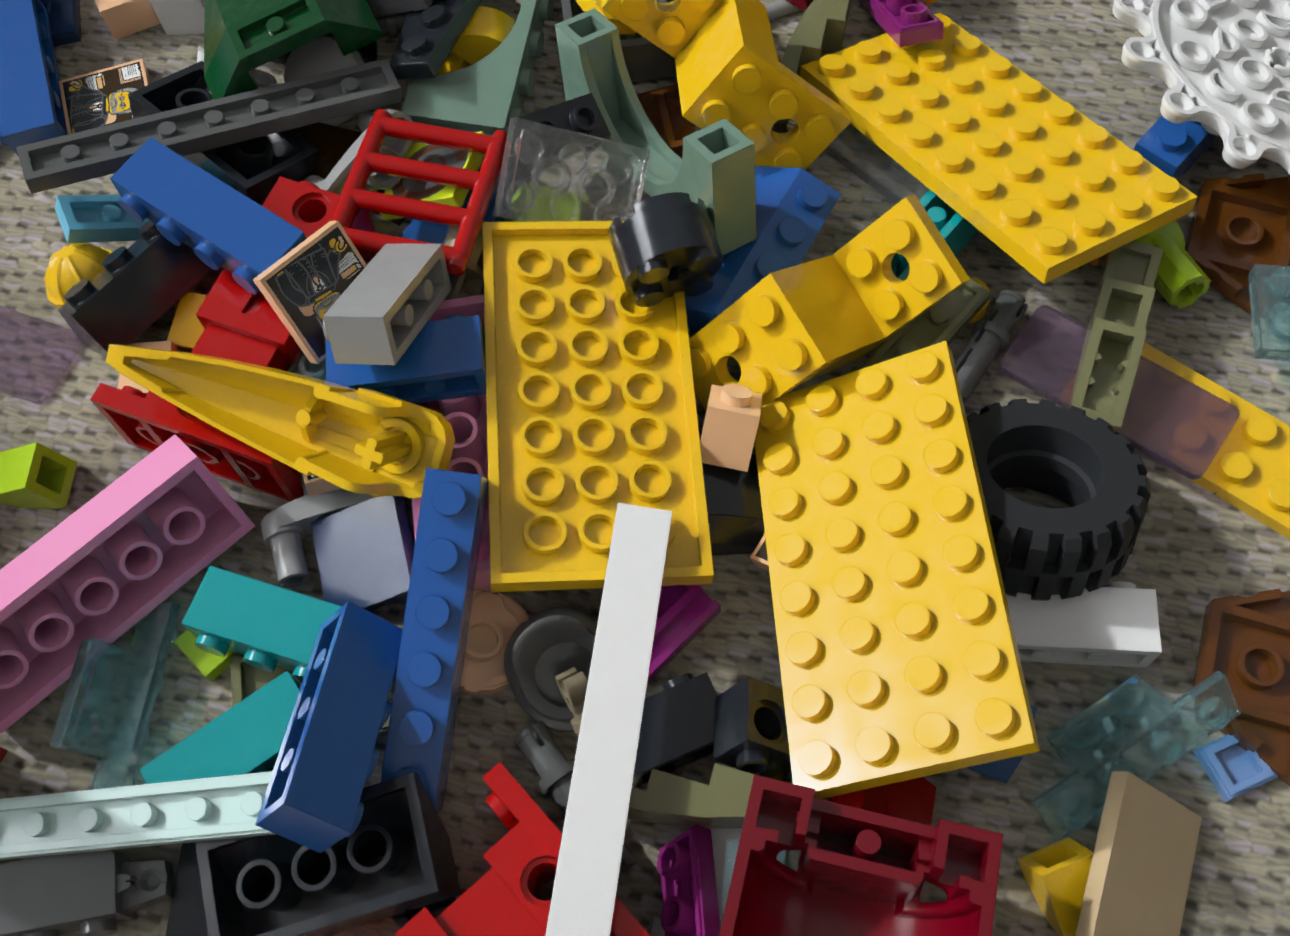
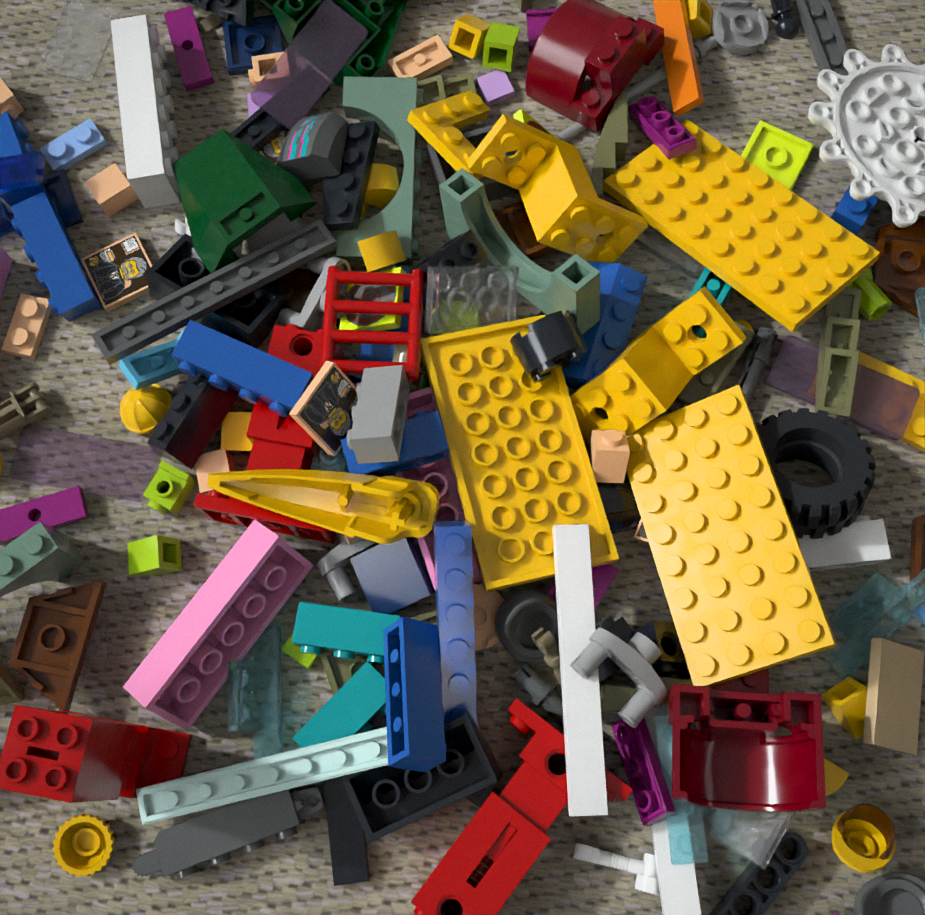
camera: 10 degrees left, 10 degrees up
(73, 385) = (180, 488): none -> lime brick
(462, 106) = (381, 251): none -> yellow brick
(702, 730) = (635, 660): none -> light grey connector
(1068, 68) = (777, 153): none -> neon yellow tile

